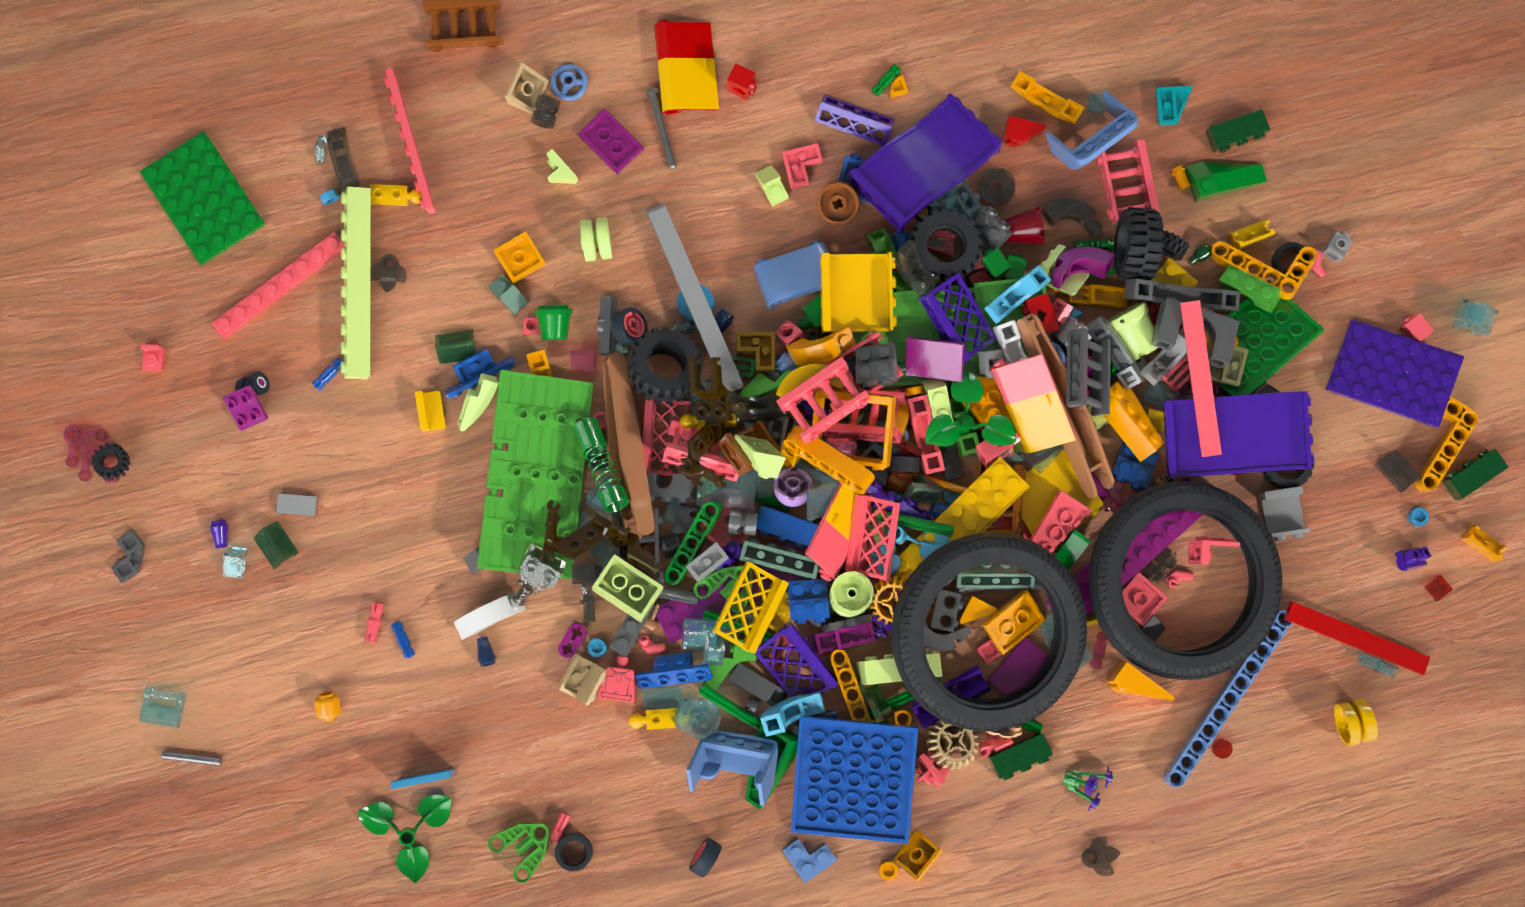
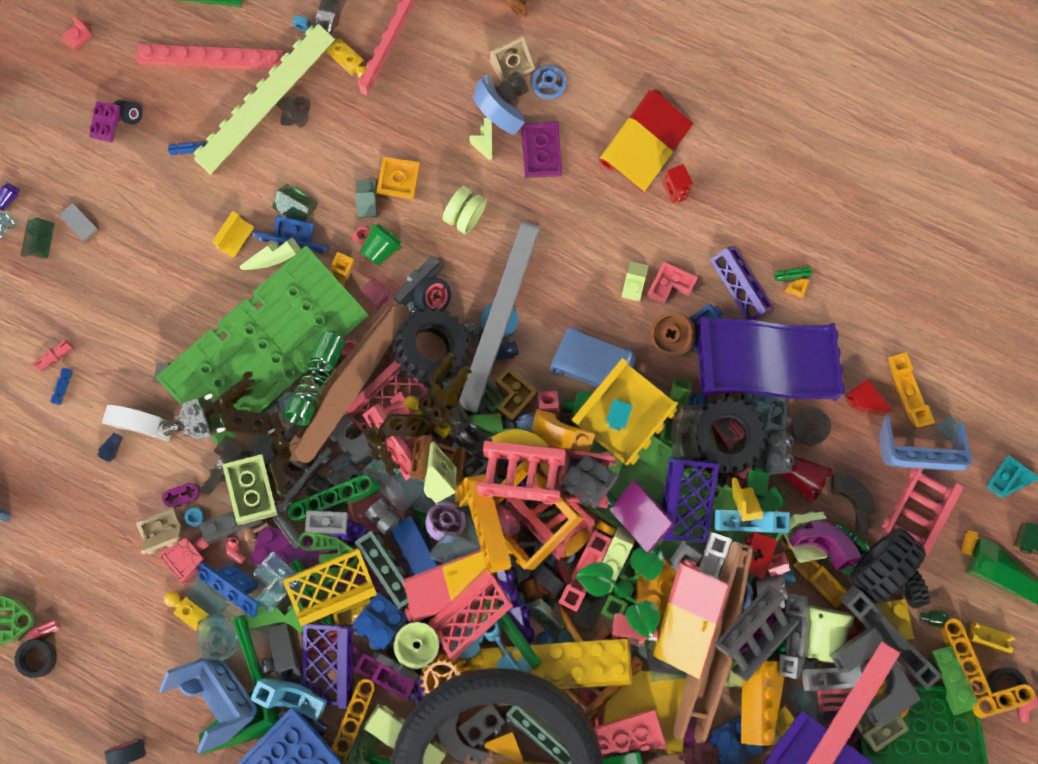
camera: 50 degrees right, 5 degrees down
(547, 138) = (496, 108): none -> medium blue arch
(652, 93) = (603, 139): flat silver bar -> none
(854, 298) = (618, 415): none -> teal brick
(1001, 283) = (746, 502): none -> yellow panel

